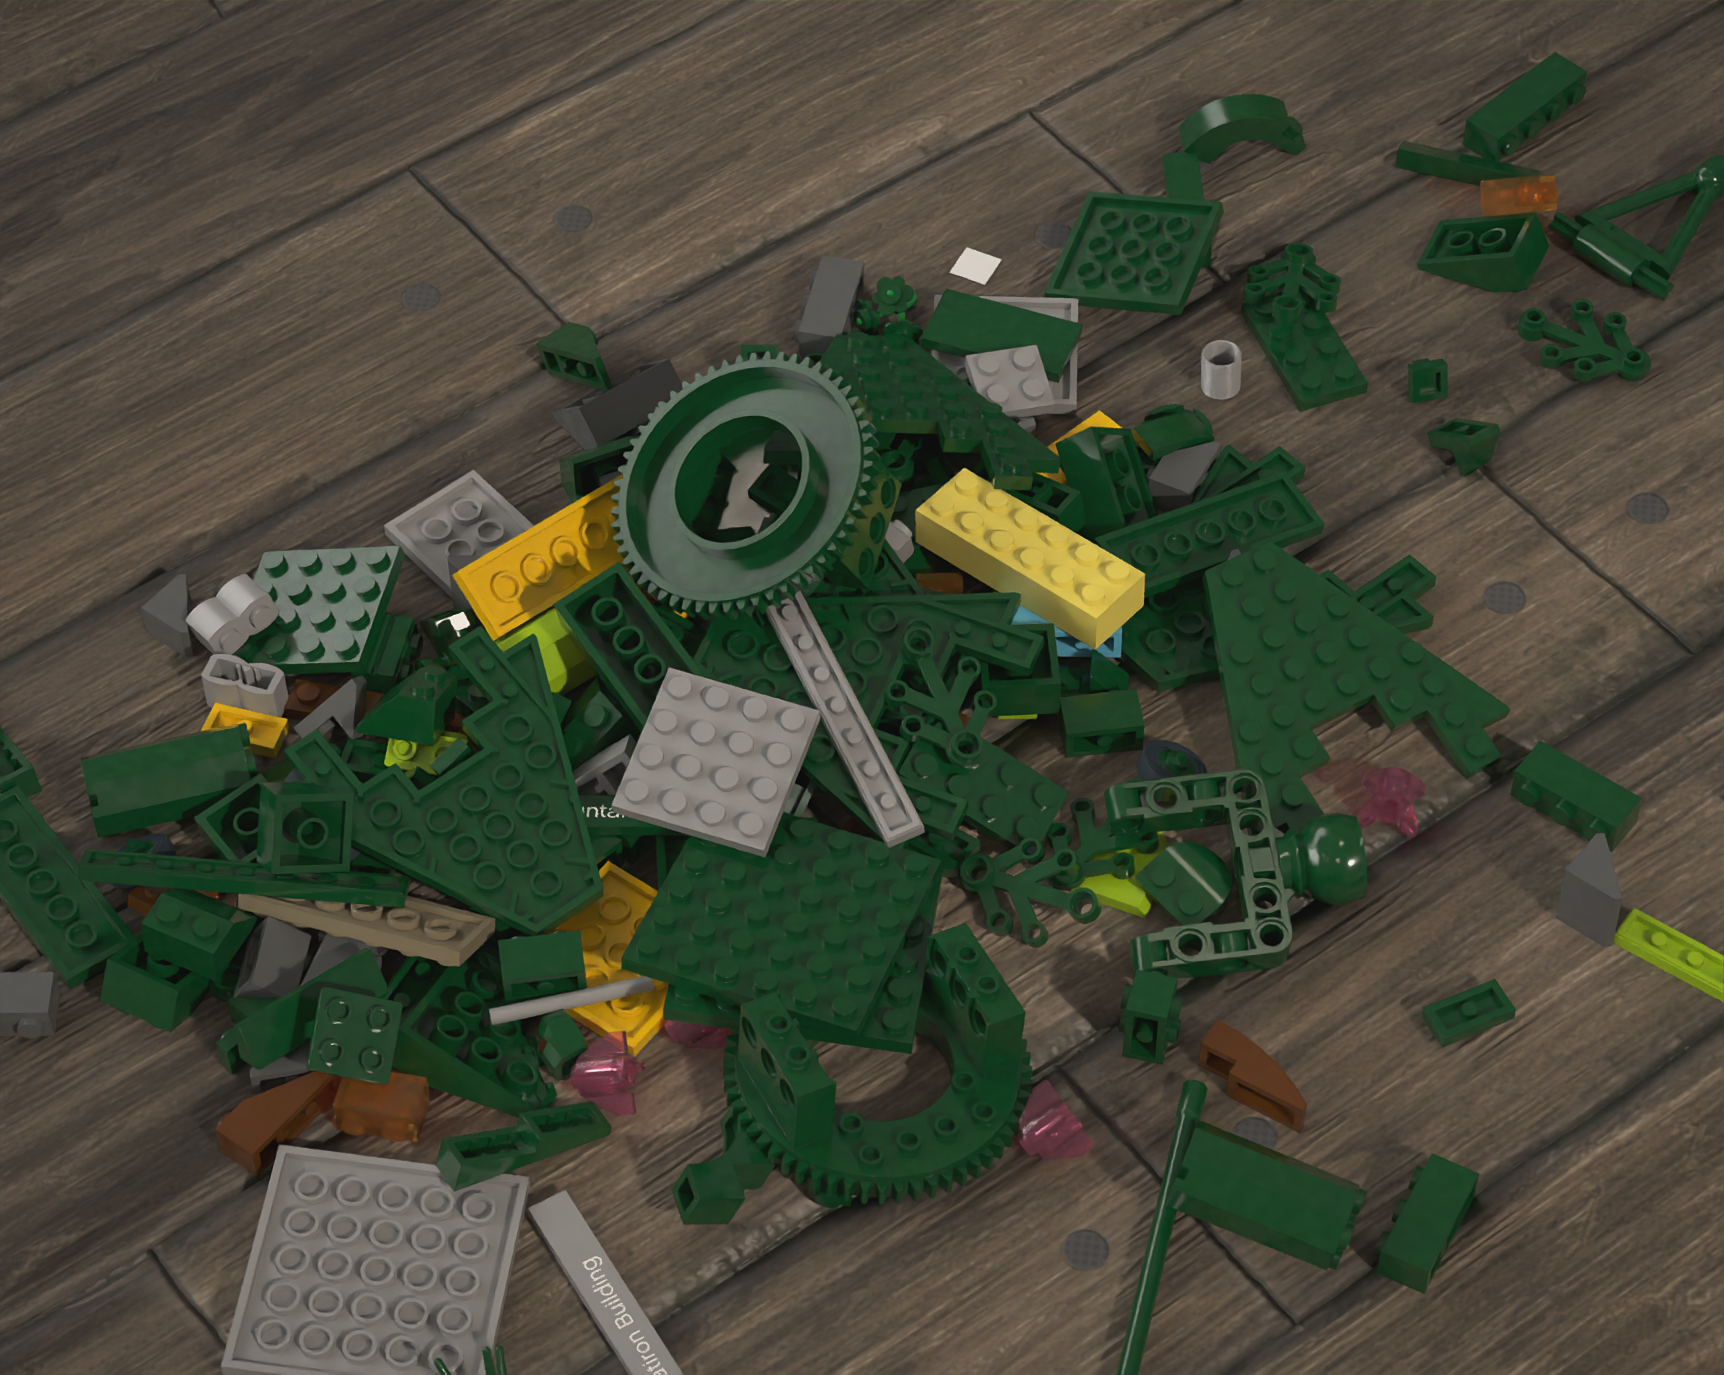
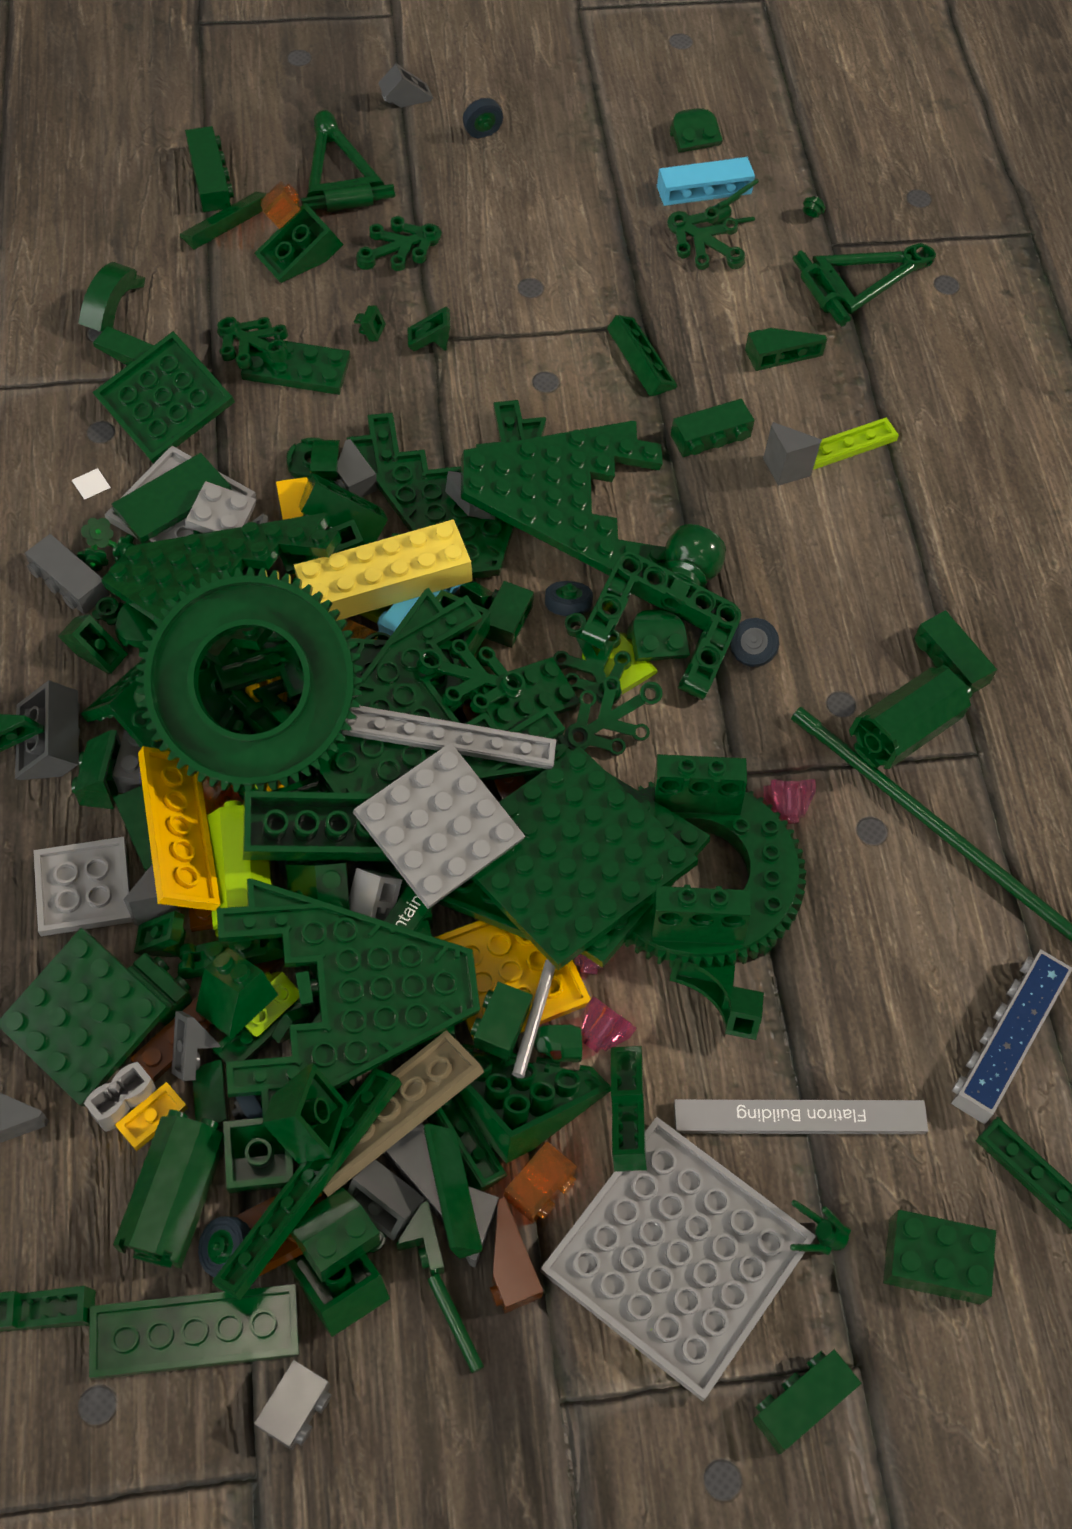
camera: 65 degrees left, 10 degrees up
(181, 1107) = (455, 1323): none -> dark green bar
(232, 615) = (54, 1072): light grey brick -> none
(353, 1036) = (500, 1172): dark green bracket -> none
(1150, 1016) = (747, 704): dark green brick -> none
(1203, 534) = (419, 476): dark green plate -> none
(1221, 369) = (287, 409): light grey piece -> none
(1252, 1076) = (809, 680): reddish brown slope -> none
(1262, 990) = (755, 642): none -> black wheel
(1392, 798) = (660, 506): clear pink brick -> none
(1468, 1013) = (825, 557): dark green plate -> none
(1640, 672) = (641, 355): none -> dark green slope

